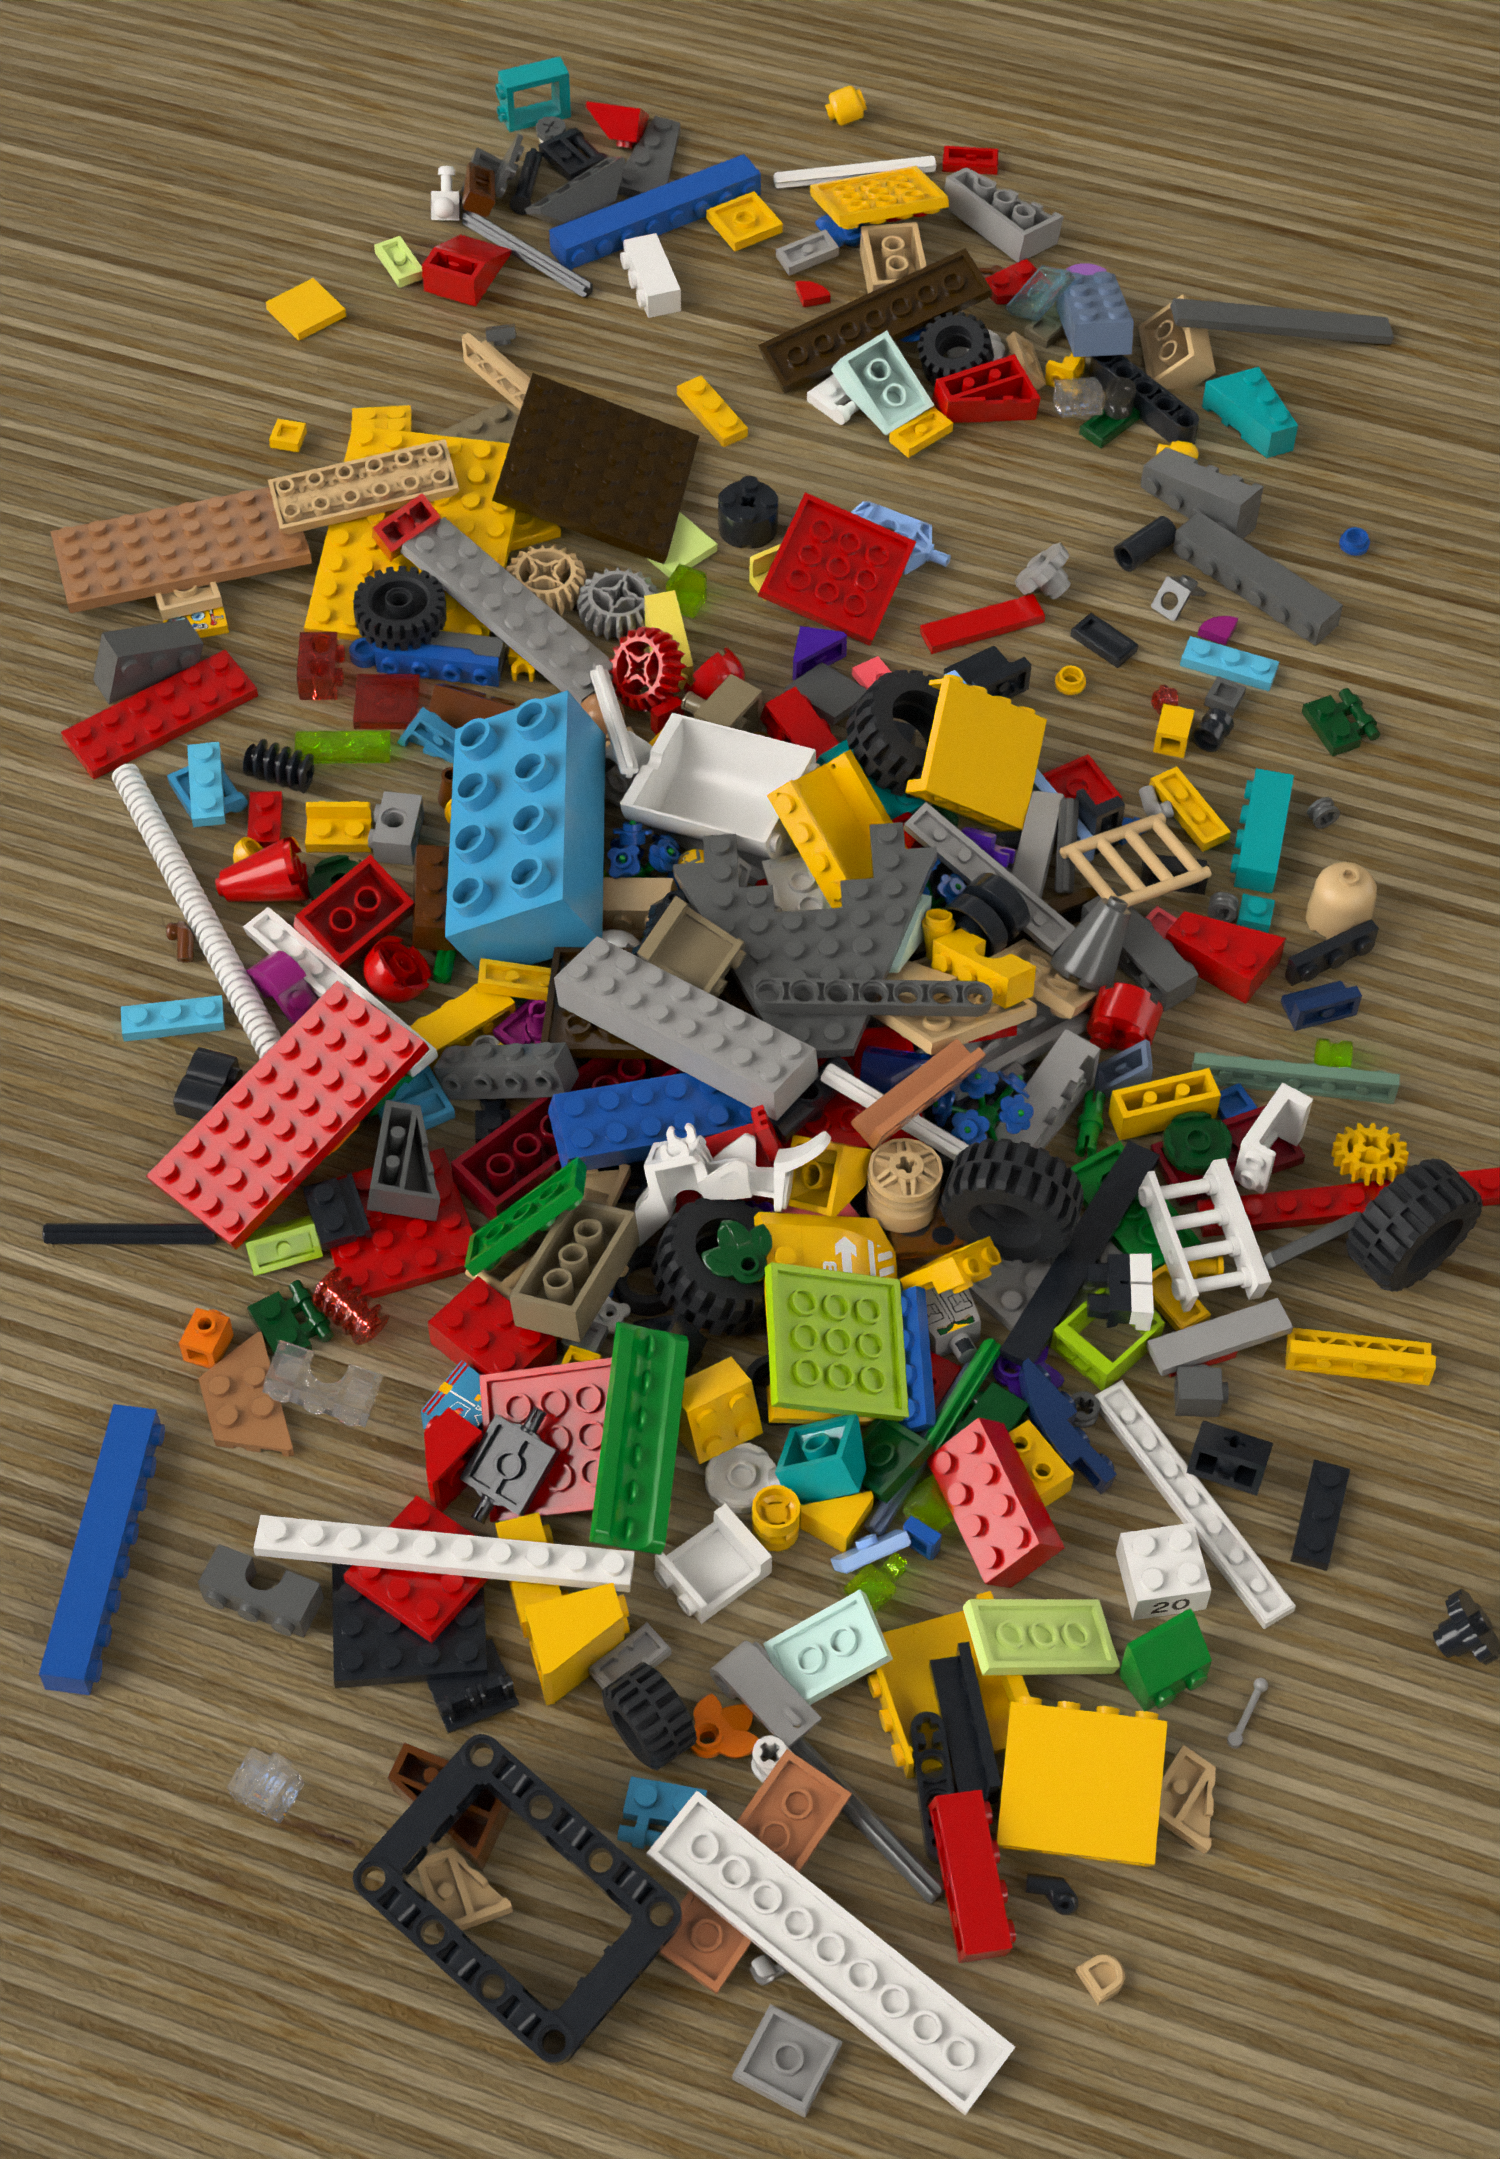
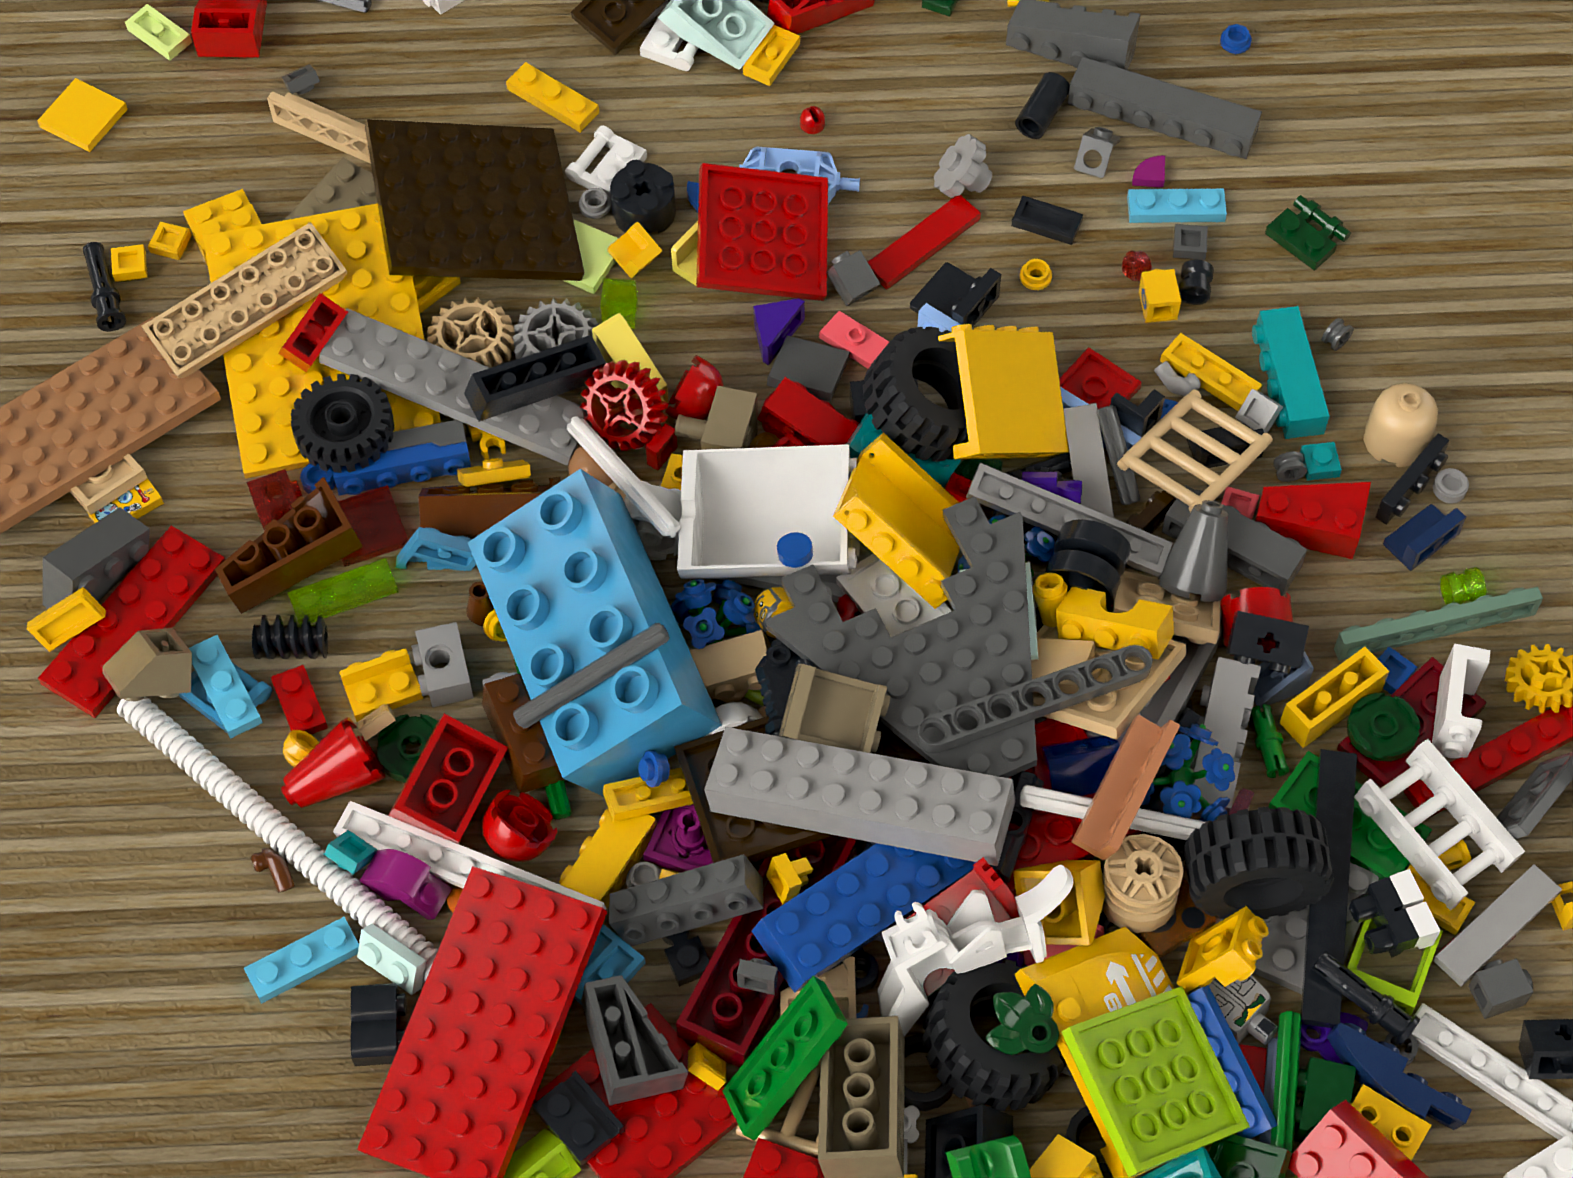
camera: 20 degrees left, 5 degrees up
(103, 691) = (66, 619): none -> yellow tile
(152, 746) = (150, 665): none -> dark tan slope
(242, 1036) = (391, 958): none -> light aqua plate
(247, 944) = (350, 852): none -> teal plate
(261, 425) = (96, 260): none -> black pin
(310, 695) = (290, 549): none -> reddish brown wedge
(319, 853) = (376, 721): none -> tan tile
(331, 429) = (170, 240): none -> yellow tile
(465, 1210) = (707, 1066): none -> yellow tile
(501, 856) = (591, 675): none -> dark grey axle
(511, 689) = (493, 471): none -> yellow plate
(527, 957) = (654, 768): none -> blue plate
(534, 1145) = (757, 975): none -> dark grey plate
(574, 619) = (533, 378): none -> black brick
(600, 1073) = (788, 876): none -> yellow tile
(705, 506) = (591, 197): none -> light grey plate
(720, 553) = (634, 250): none -> yellow panel
(725, 816) = (795, 550): none -> blue tile
(748, 467) = (618, 156): none -> white plate
(901, 630) = (852, 276): none -> dark grey brick
(926, 496) = (807, 122): none -> red hinge
(1073, 1363) = (1379, 1008): none -> black pin
(1105, 1013) = (1289, 640): none -> black brick
(1215, 851) = (1258, 411): none -> light grey plate
(1367, 971) = (1450, 485): none -> light grey tile

